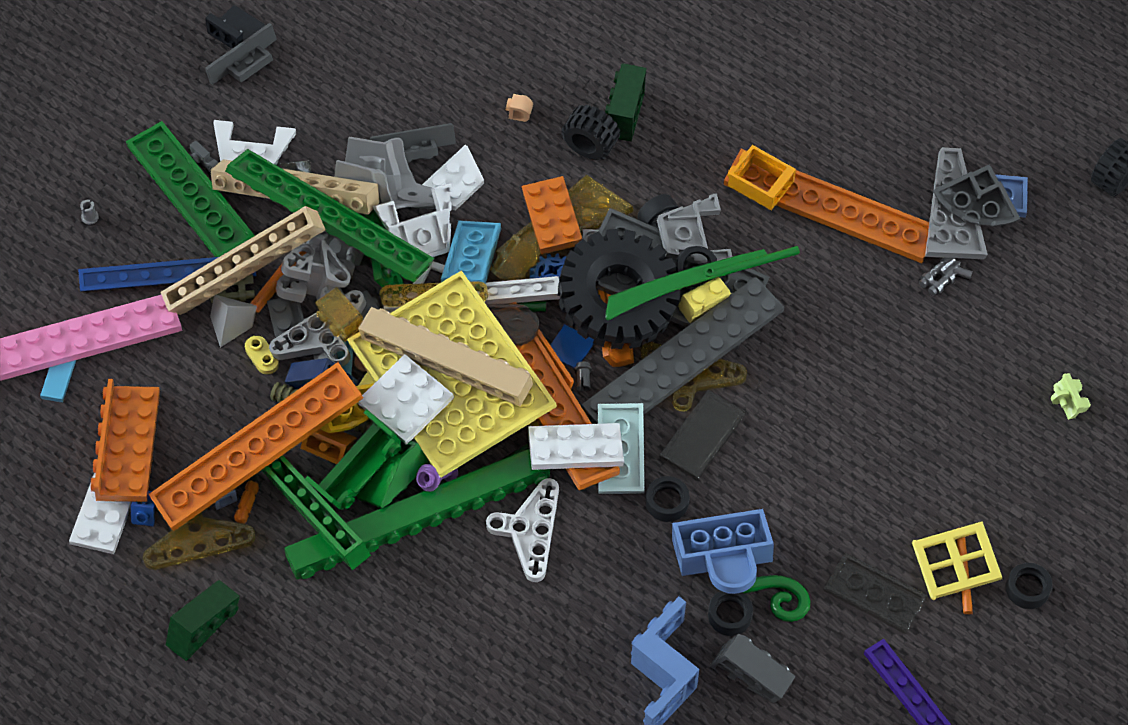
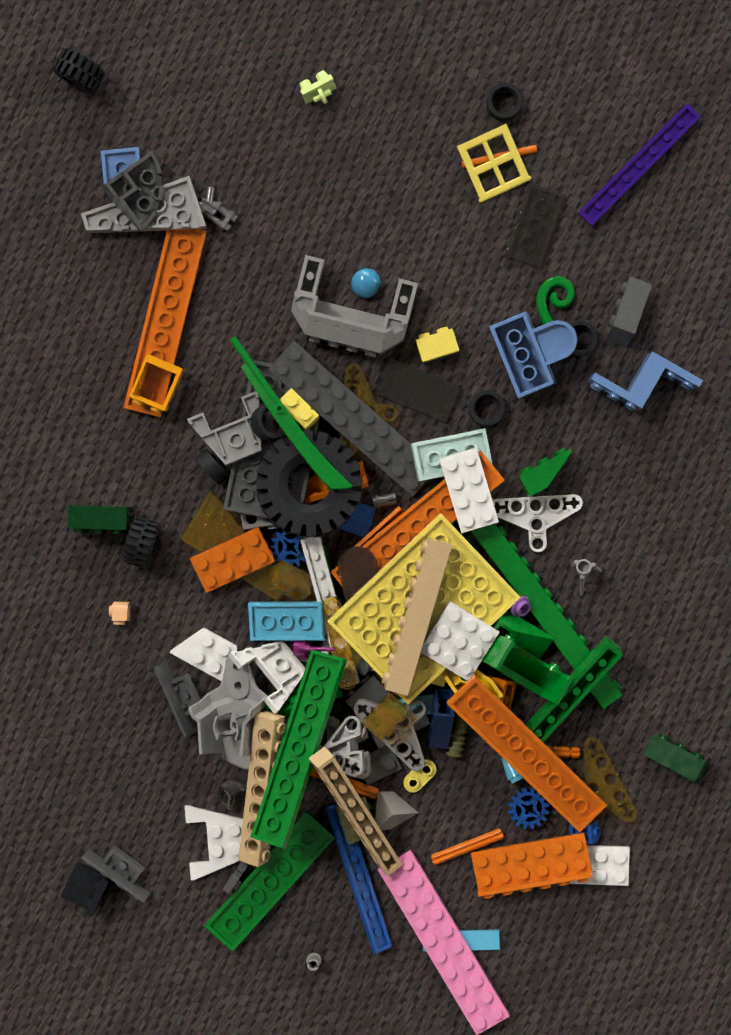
camera: 100 degrees left, 30 degrees up
(167, 386) = (467, 846): none -> orange axle
(192, 447) = (521, 818): none -> blue gear
(436, 267) = (302, 649): none -> magenta plant
(455, 553) = (584, 569): none -> light grey plant
(577, 536) = (538, 478): none -> green slope
(751, 460) = (437, 345): none -> light yellow brick
(792, 370) = (346, 325): none -> light grey wedge
(837, 405) = (366, 283): none -> dark azure hair

